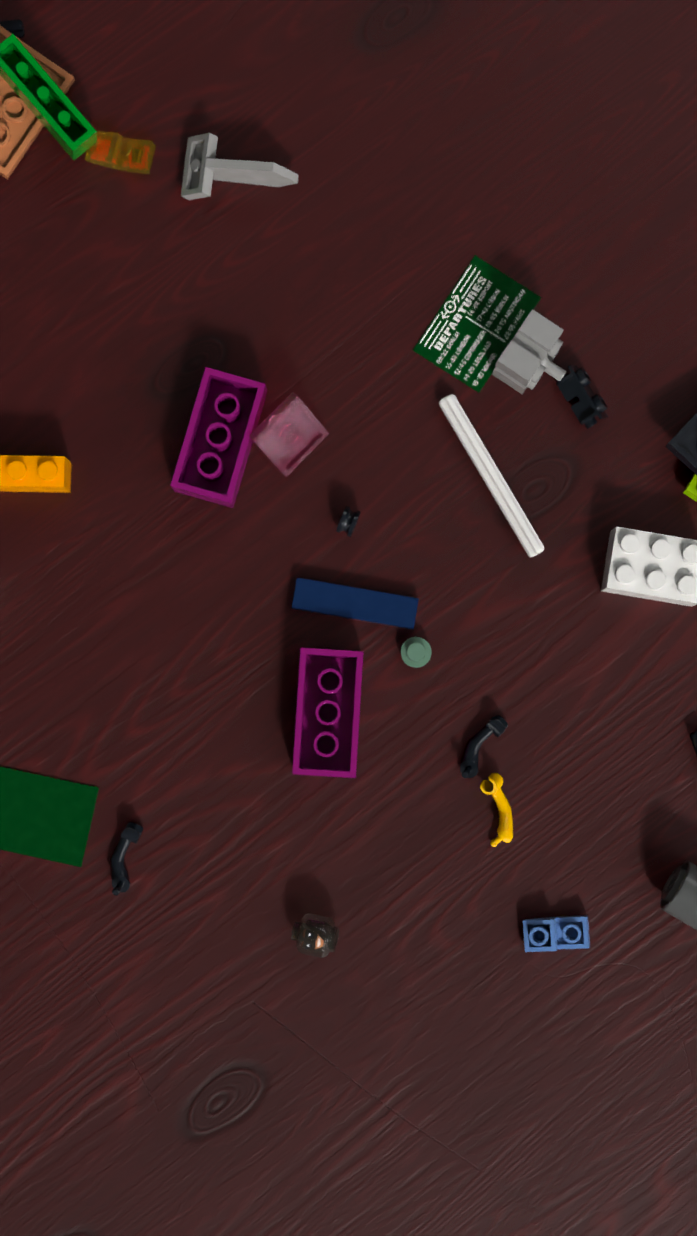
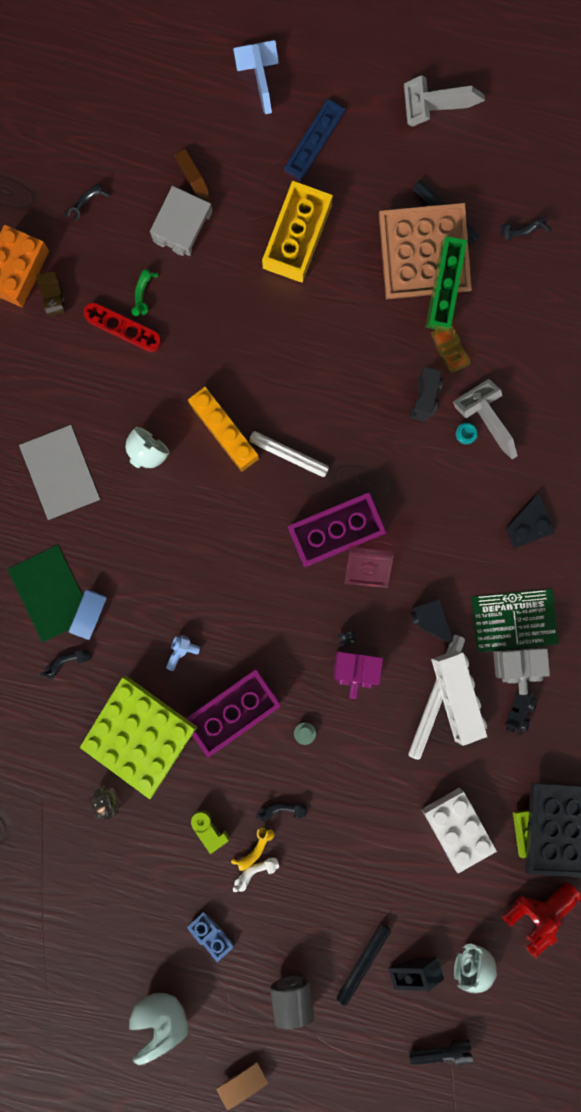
camera: 45 degrees right, 0 degrees up
(89, 789) = (87, 614): none -> medium blue slope
(92, 423) = (288, 454): none -> white axle
(143, 210) = (428, 385): none -> black brick
(209, 712) = (181, 646): none -> light blue piece
(228, 210) = (466, 433): none -> teal plate
(271, 839) = (138, 737): none -> lime plate
(355, 603) = (305, 678): dark blue tile -> none
(385, 222) = (530, 524): none -> black wing
(391, 537) = (357, 671): none -> magenta brick
(403, 413) = (431, 619): none -> black slope
(438, 846) = (207, 832): none -> lime leg
(511, 449) = (459, 697): none -> white brick
(523, 849) = (243, 880): none -> white piece
(605, 1052) = (168, 1020): none -> light aqua piece

